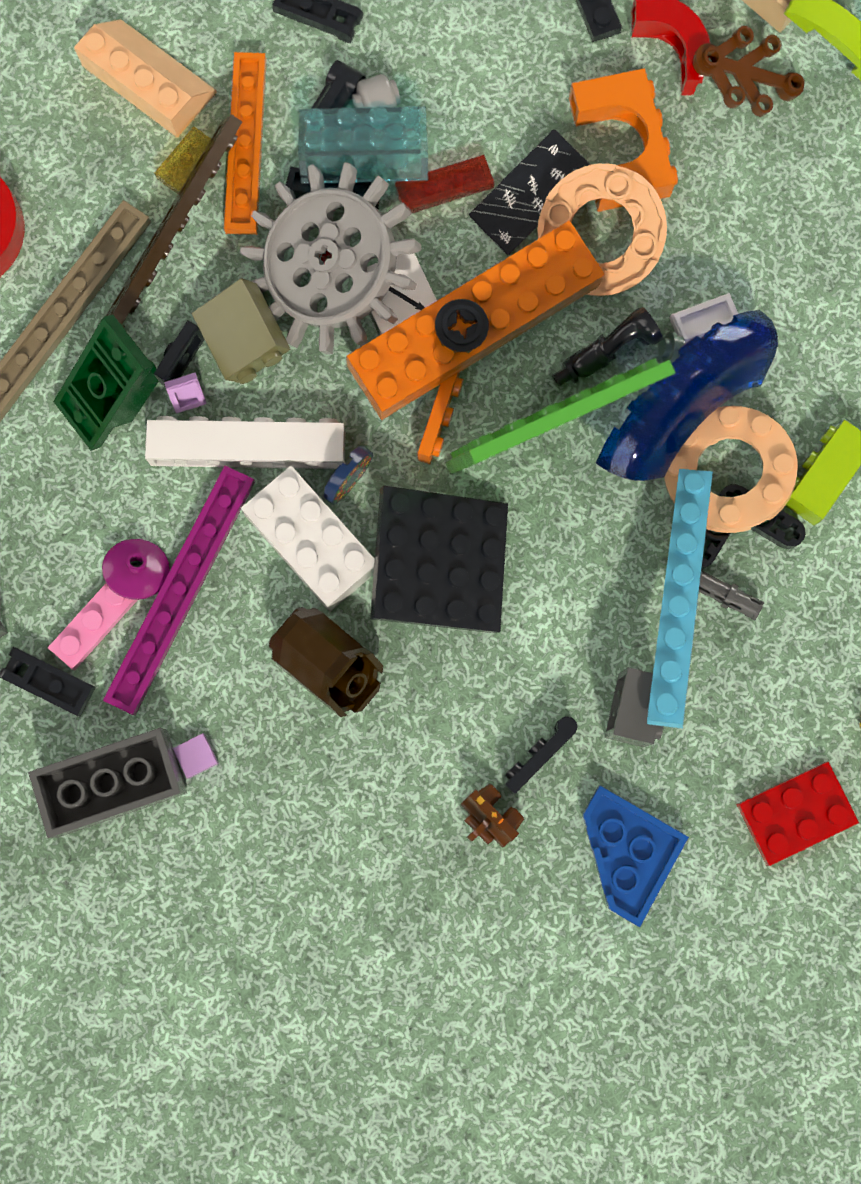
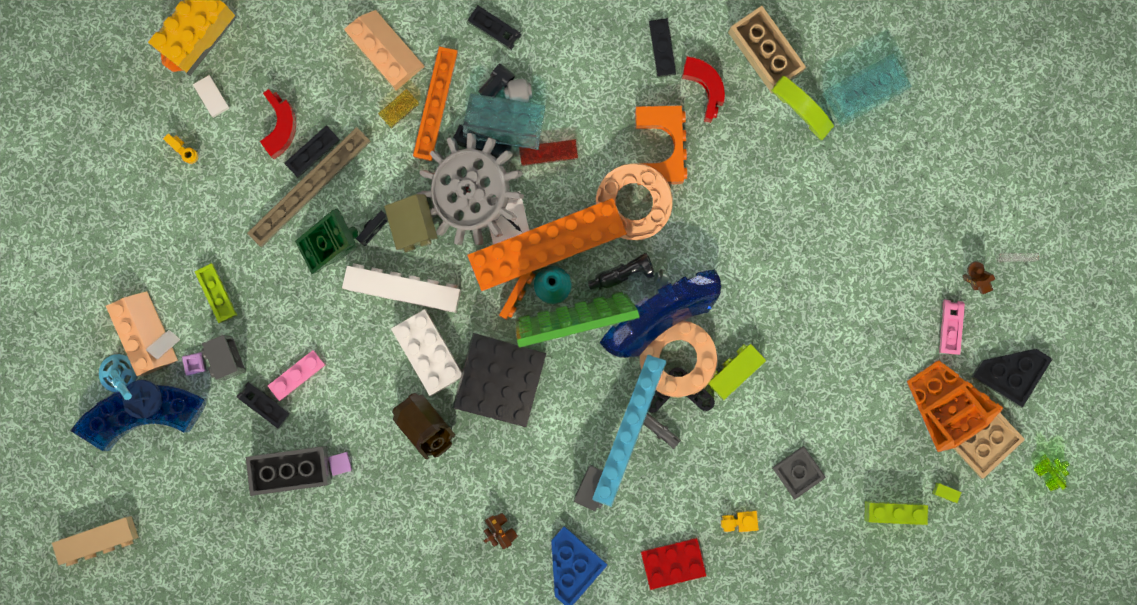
camera: 15 degrees right, 5 degrees up
(56, 253) = (312, 151): none -> black plate
(133, 581) = (322, 358): magenta dish -> none
(175, 219) = (379, 152): dark brown plate -> none
(179, 591) = (348, 367): magenta plate -> none
(185, 393) = (372, 251): lavender tile -> none
(348, 475) = (455, 321): dark blue tile -> none
(469, 313) = (528, 245): black gear -> none
(495, 390) = (557, 292): none -> teal cone
(516, 202) = (588, 172): black sticker -> none
(541, 753) = (534, 501): black plate -> none
(700, 318) = (686, 264): white tile -> none
(745, 72) = (741, 118): reddish brown plant -> none

